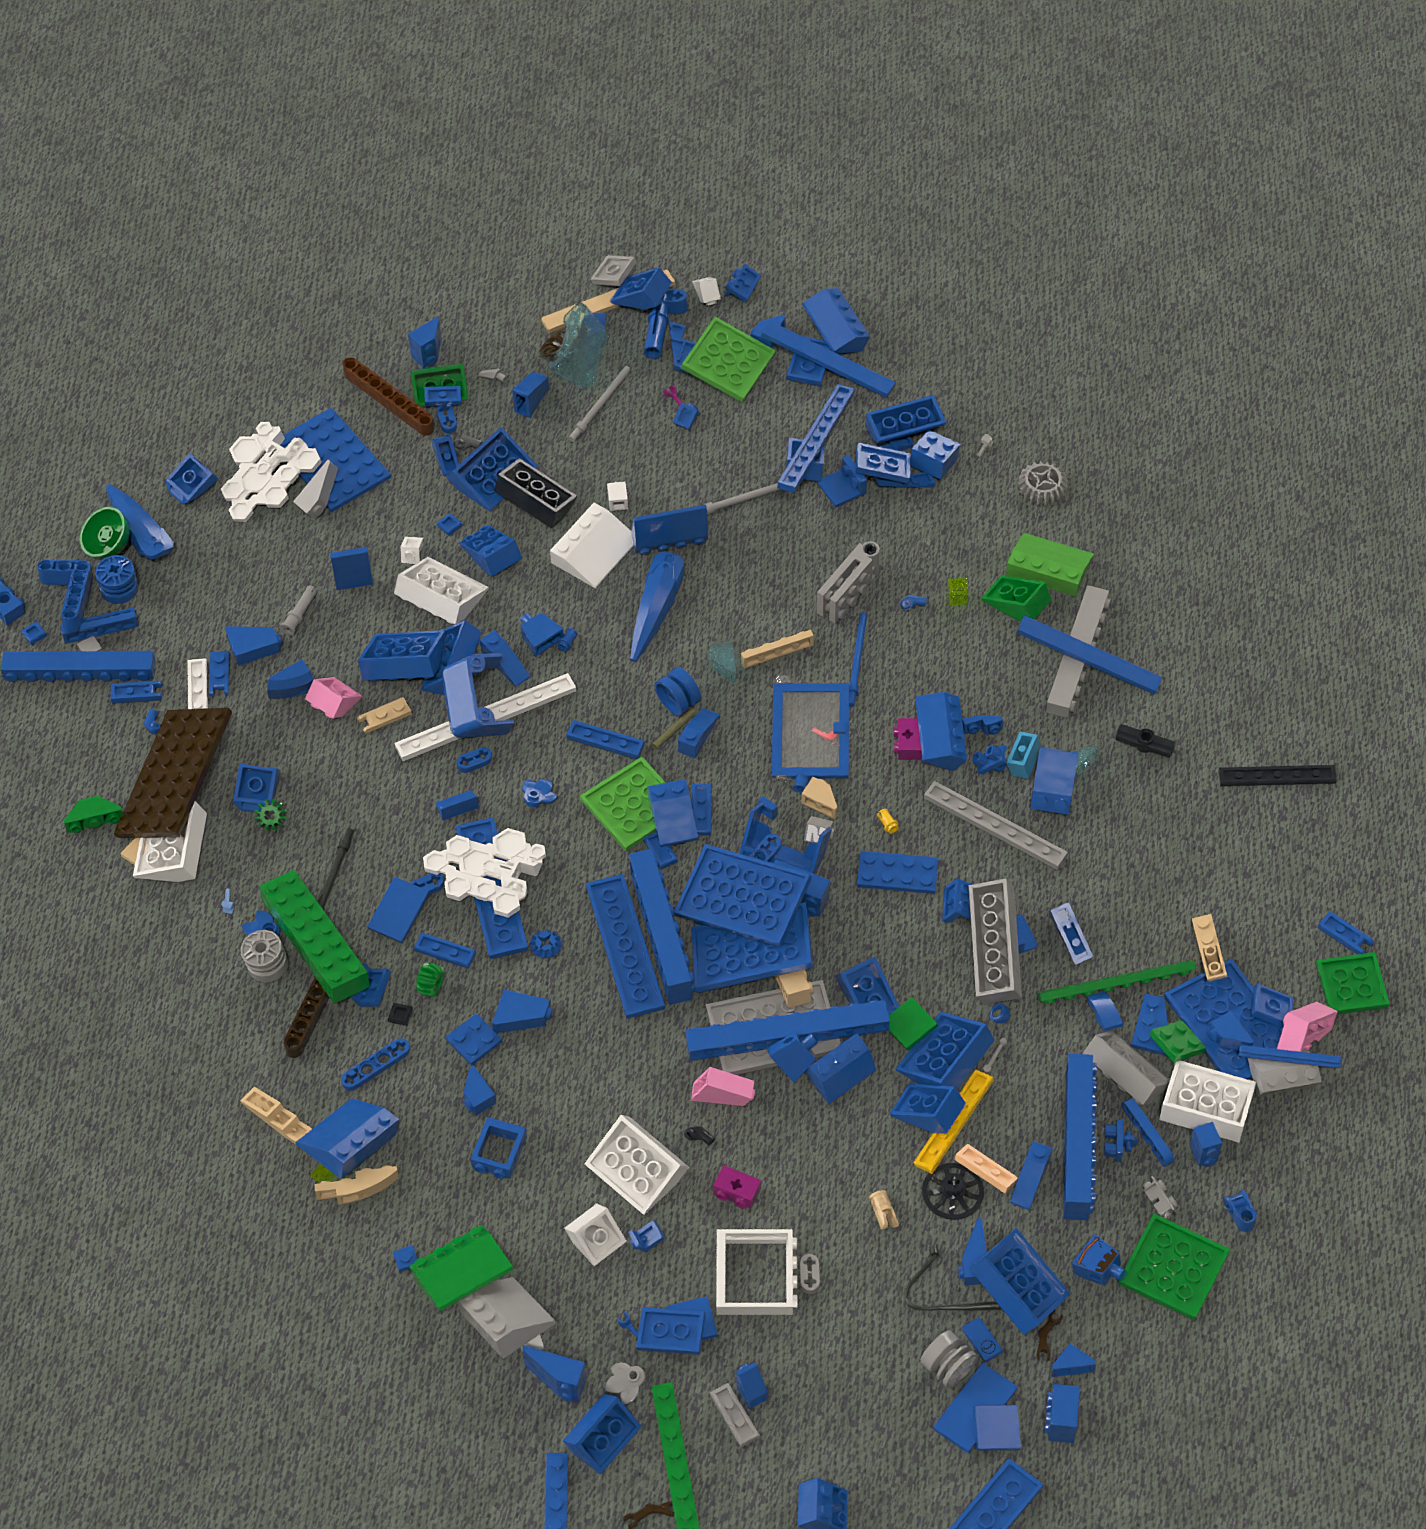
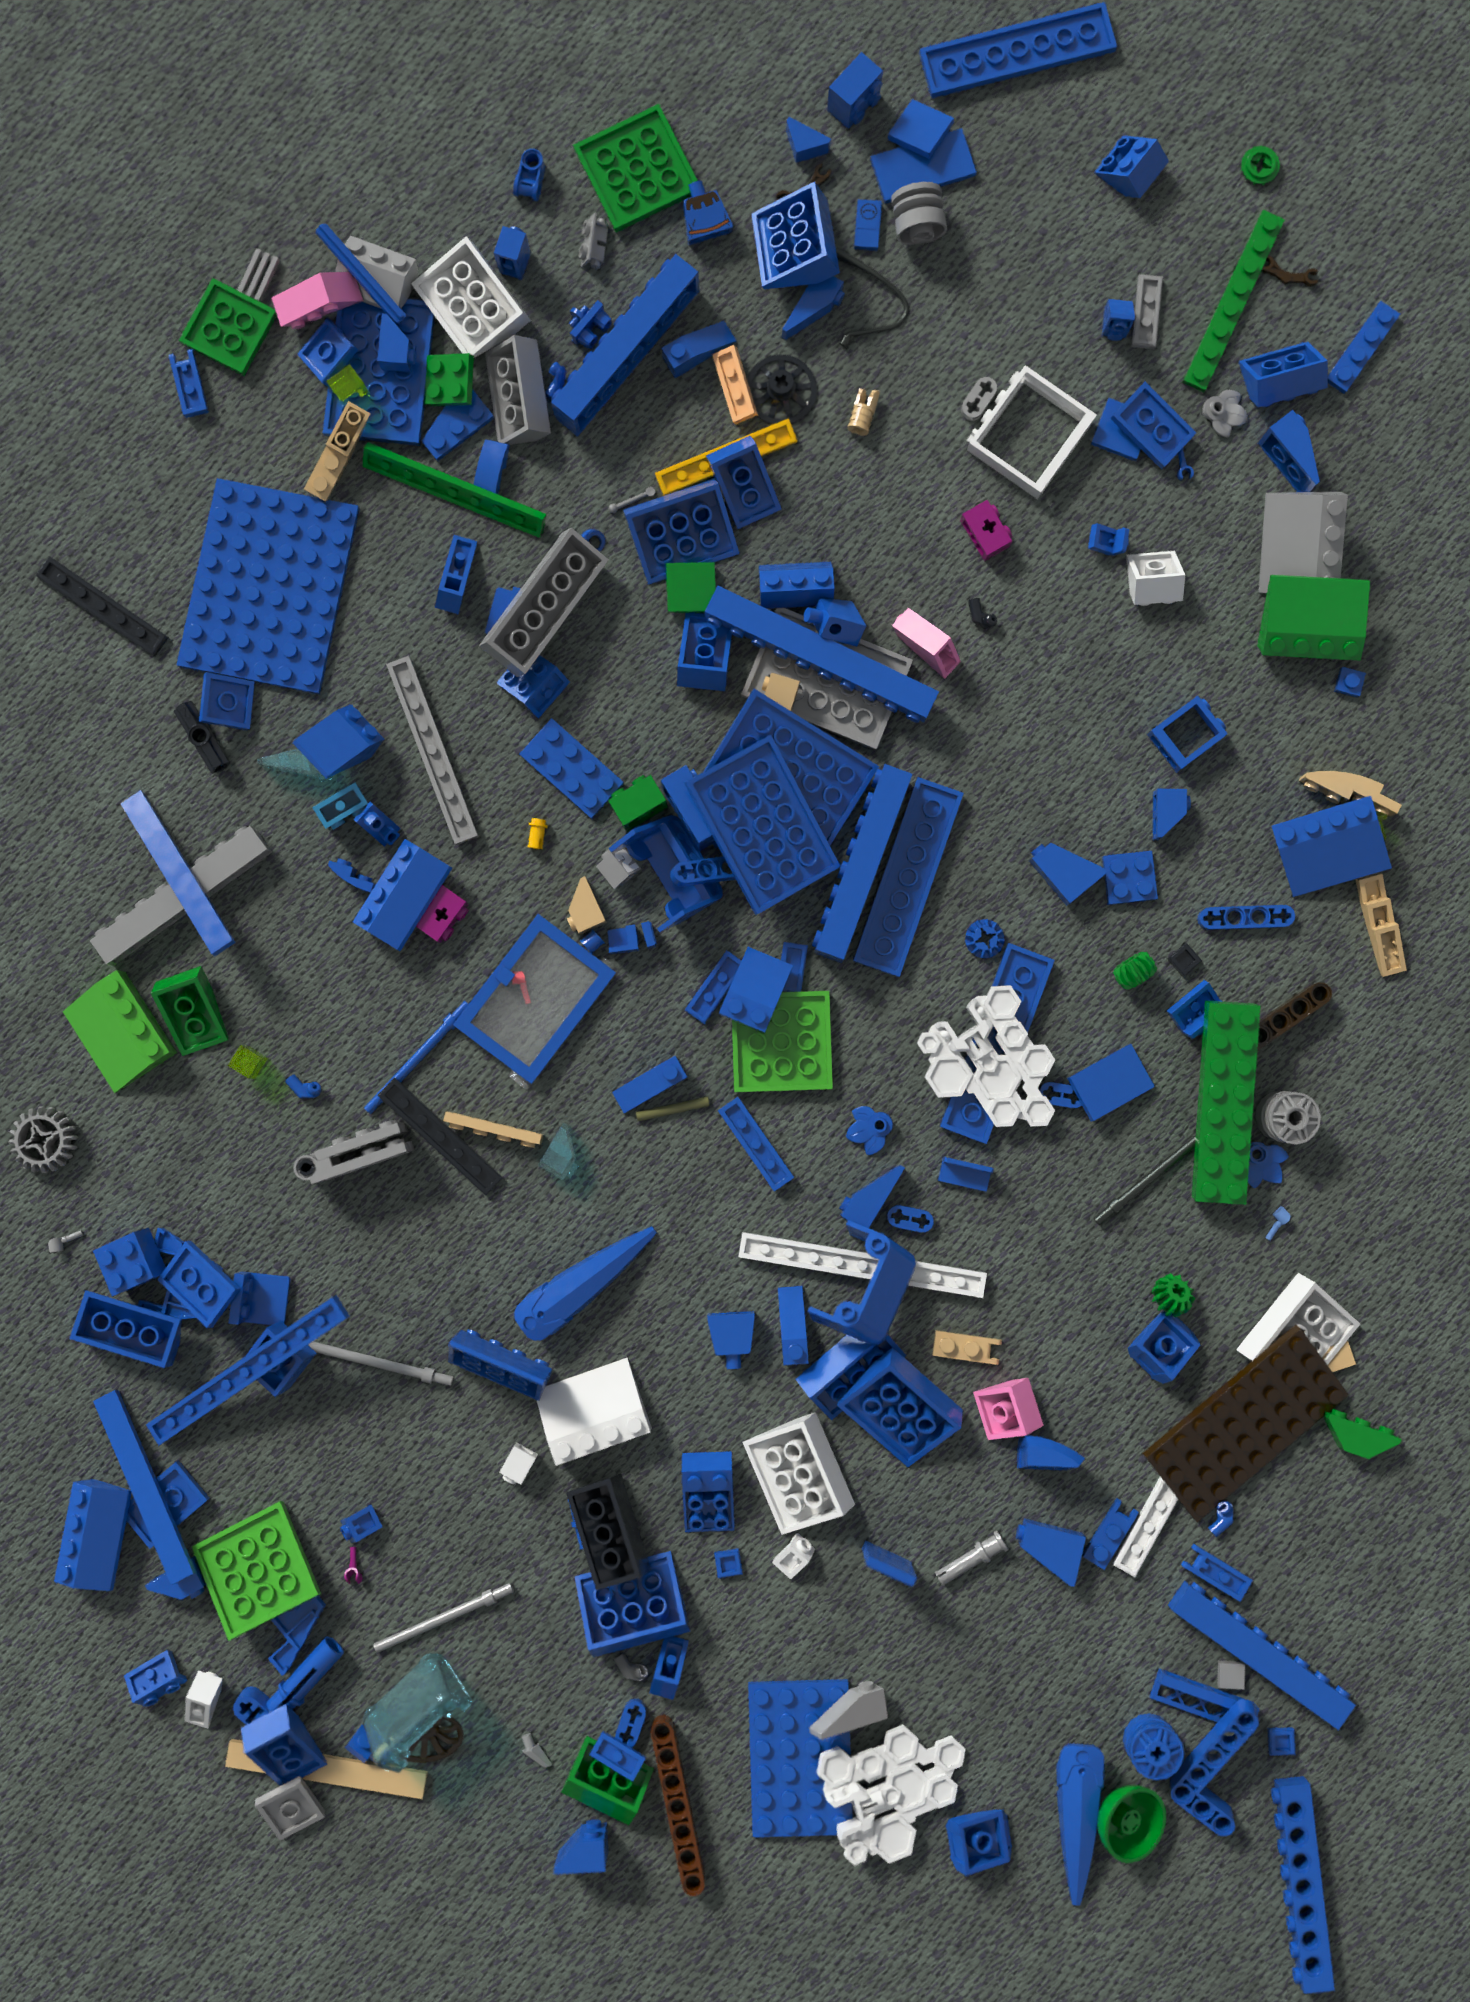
camera: 140 degrees left, 30 degrees up
(445, 950) = (1091, 1003): blue tile -> none
(509, 751) = (867, 1201): none -> blue slope
(529, 393) = (514, 1687): blue slope -> none
(565, 642) = (707, 1305): blue pin -> none
(636, 1164) = (1064, 622): white slope -> none
(677, 691) = (641, 1141): blue wheel -> none
(781, 795) = (623, 940): none -> blue panel
(819, 626) = (440, 1136): none -> black tile
(838, 868) = (637, 802): none -> green brick
(1107, 1093) = (559, 379): none -> blue arm
(1147, 767) = (226, 701): none -> blue plate
(1148, 1132) = (552, 314): blue beam -> none
(1184, 852) = (268, 586): none -> blue plate
(1238, 989) = (346, 383): none -> clear neon green panel
(1359, 1015) = (250, 271): none -> light grey tile

